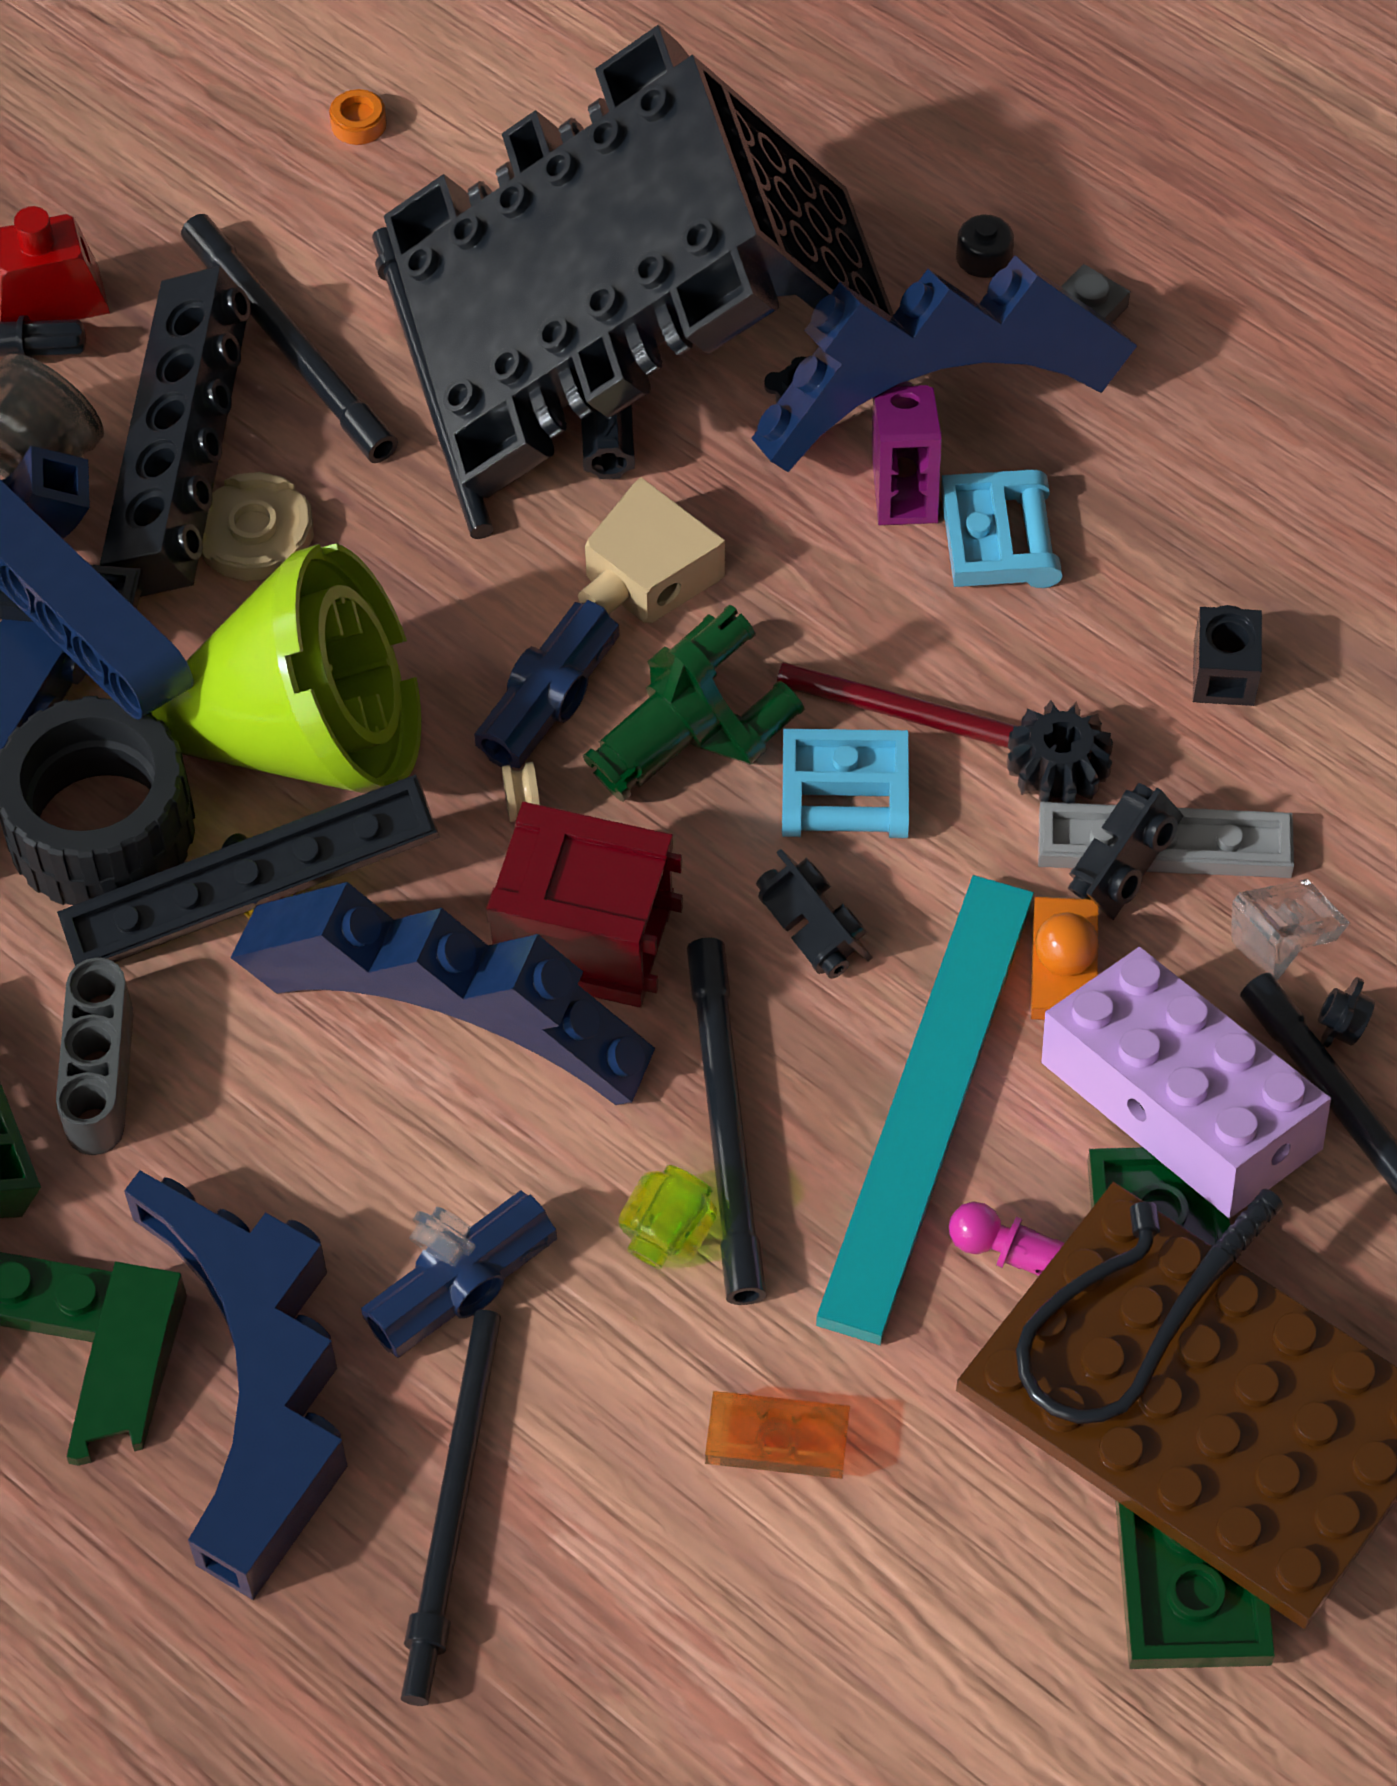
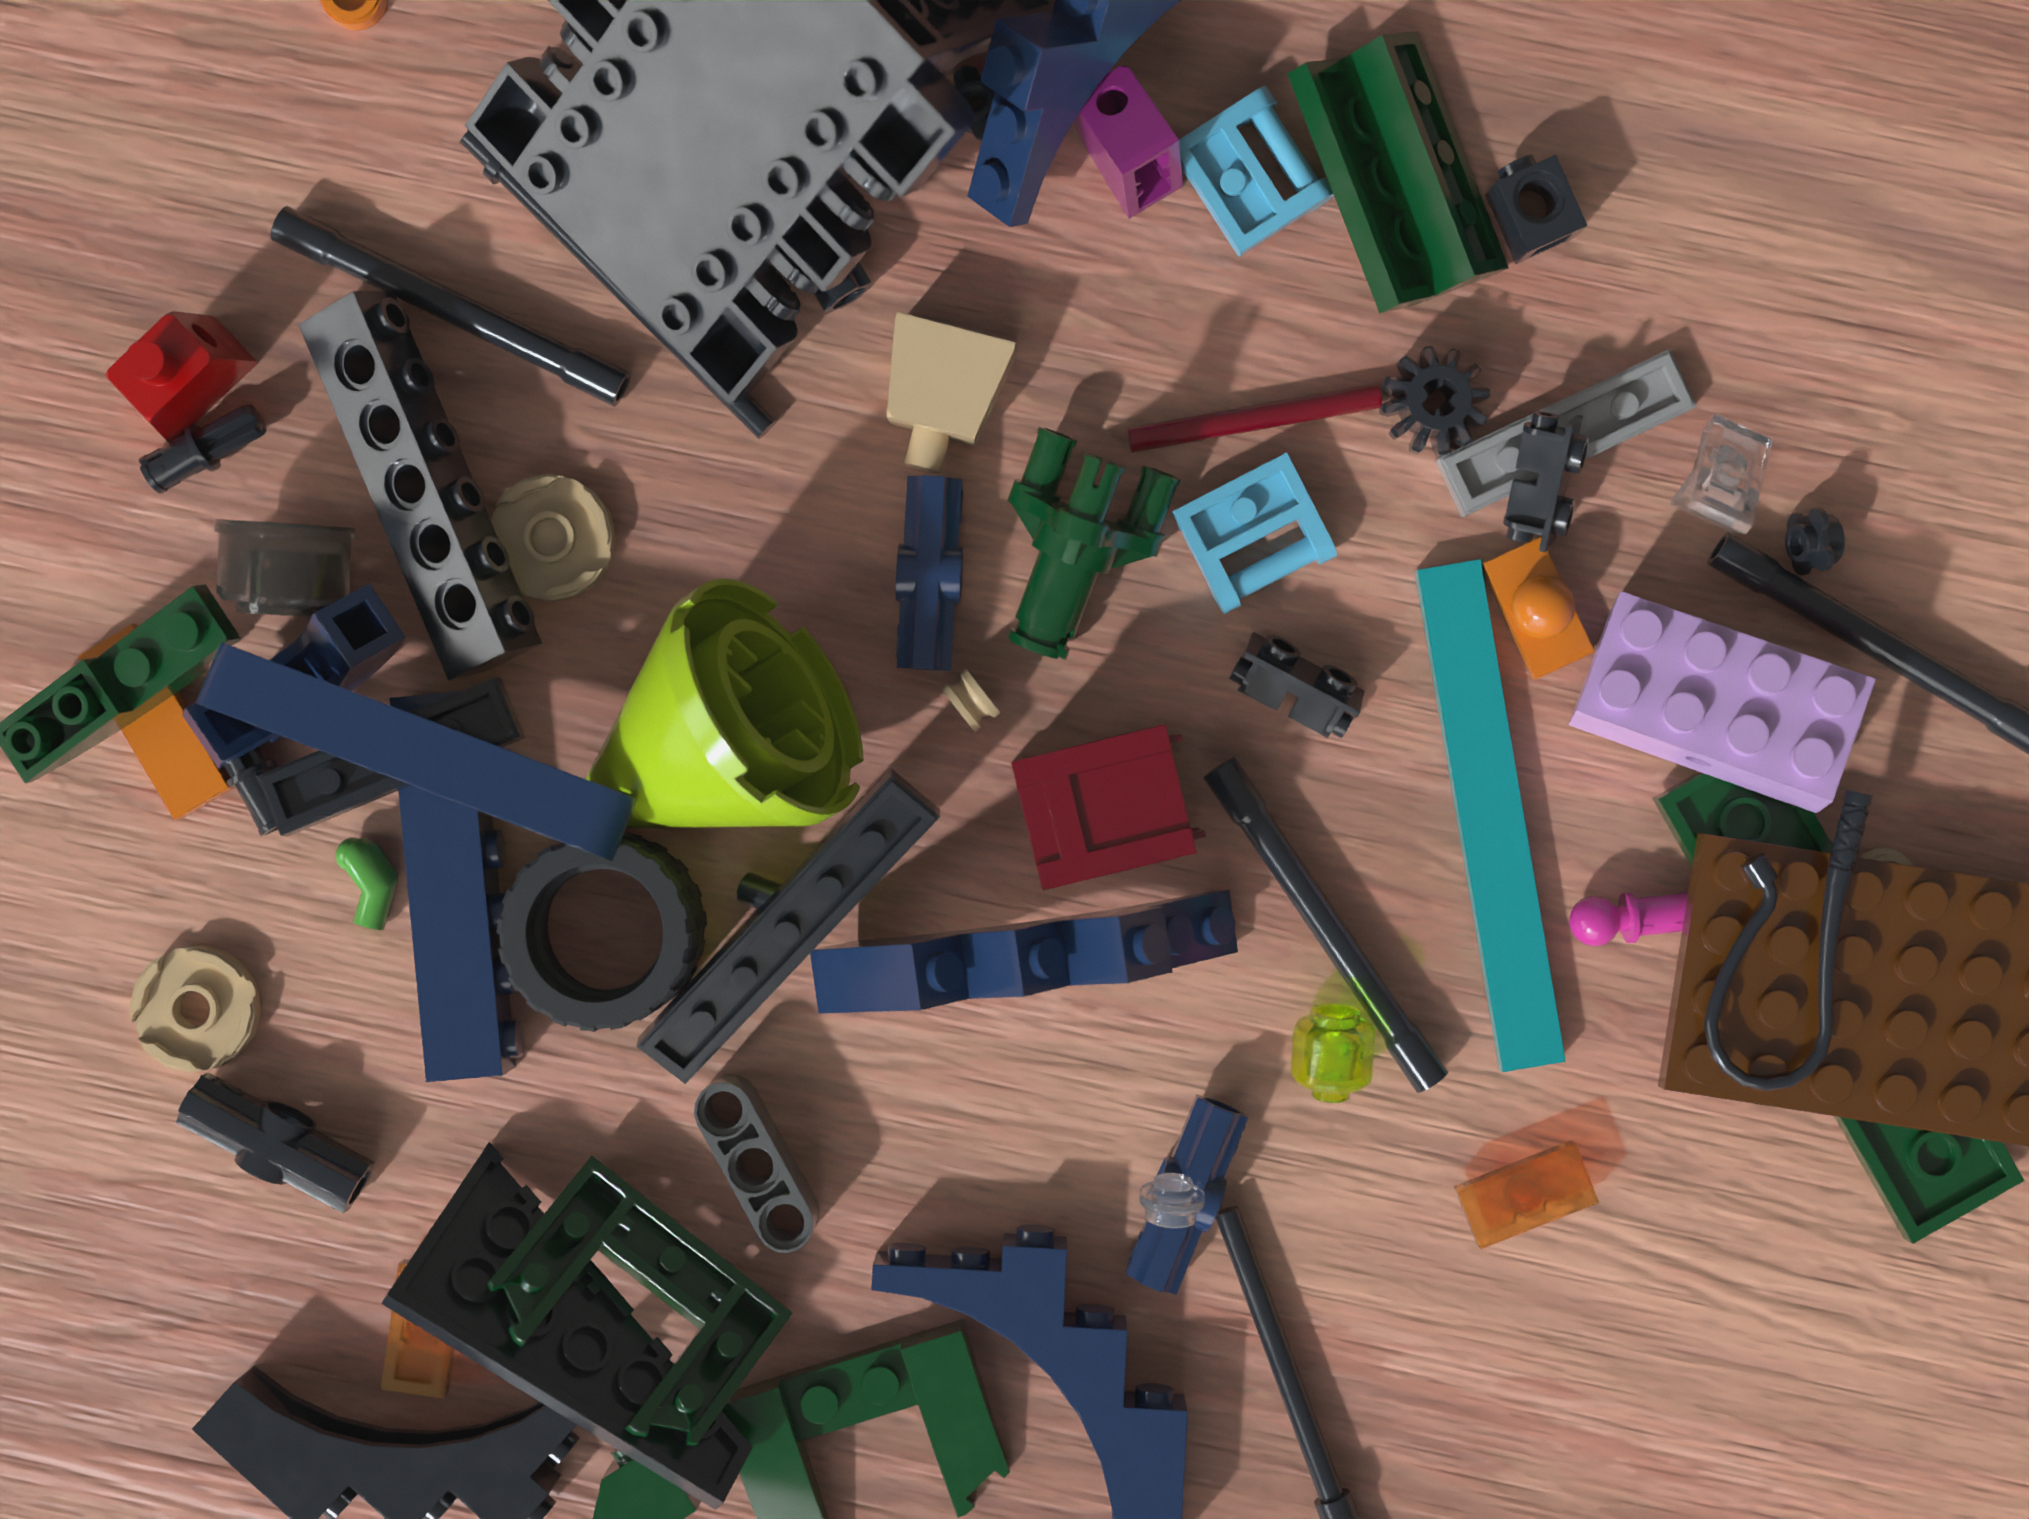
camera: 30 degrees left, 30 degrees up
(1124, 584) = (1398, 171): none -> dark green slope

